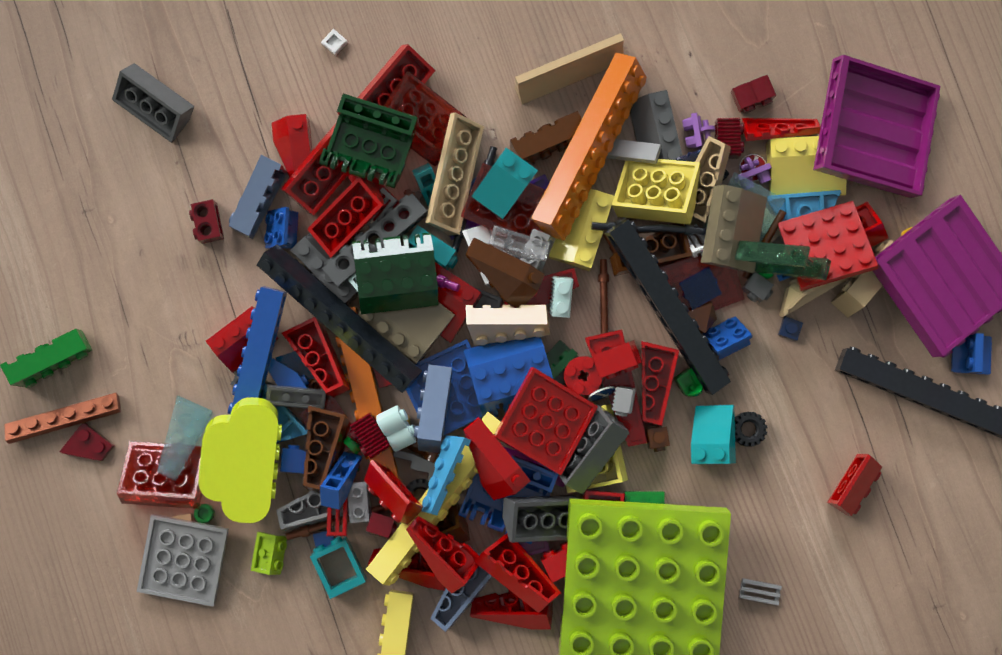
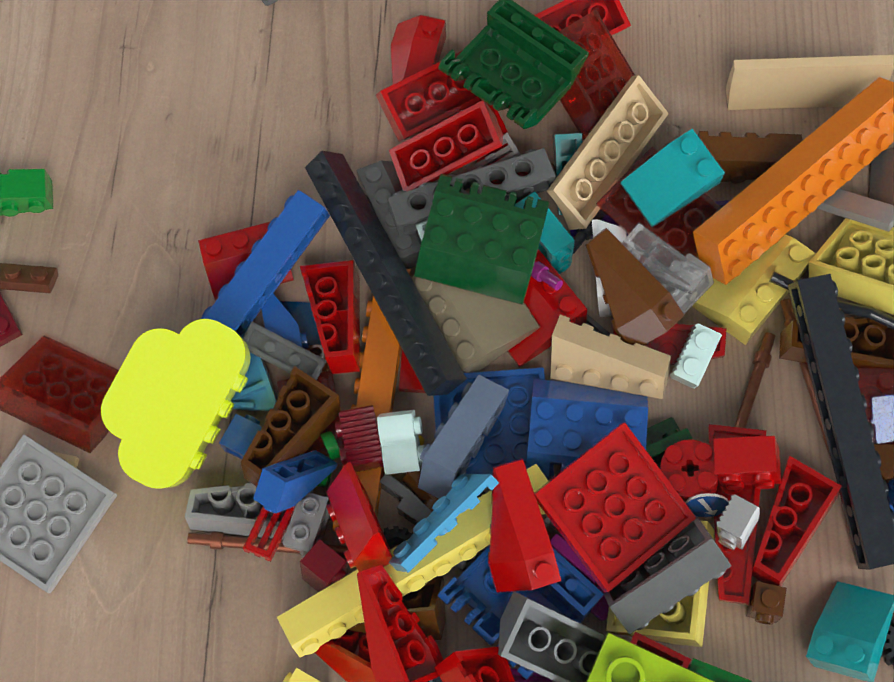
camera: 25 degrees right, 15 degrees down
(183, 433) = (106, 352): clear light blue wing -> none
(204, 513) = (94, 464): green tile -> none
(211, 220) = (270, 106): dark red brick -> none
(257, 196) = (343, 96): sand blue wedge -> none
(269, 553) = (155, 551): lime bracket -> none
(281, 228) = (359, 142): blue bracket -> none
(322, 538) = (237, 565): blue tile -> none
(347, 584) = (225, 572): teal window -> none
(688, 383) = (838, 544): green plate -> none

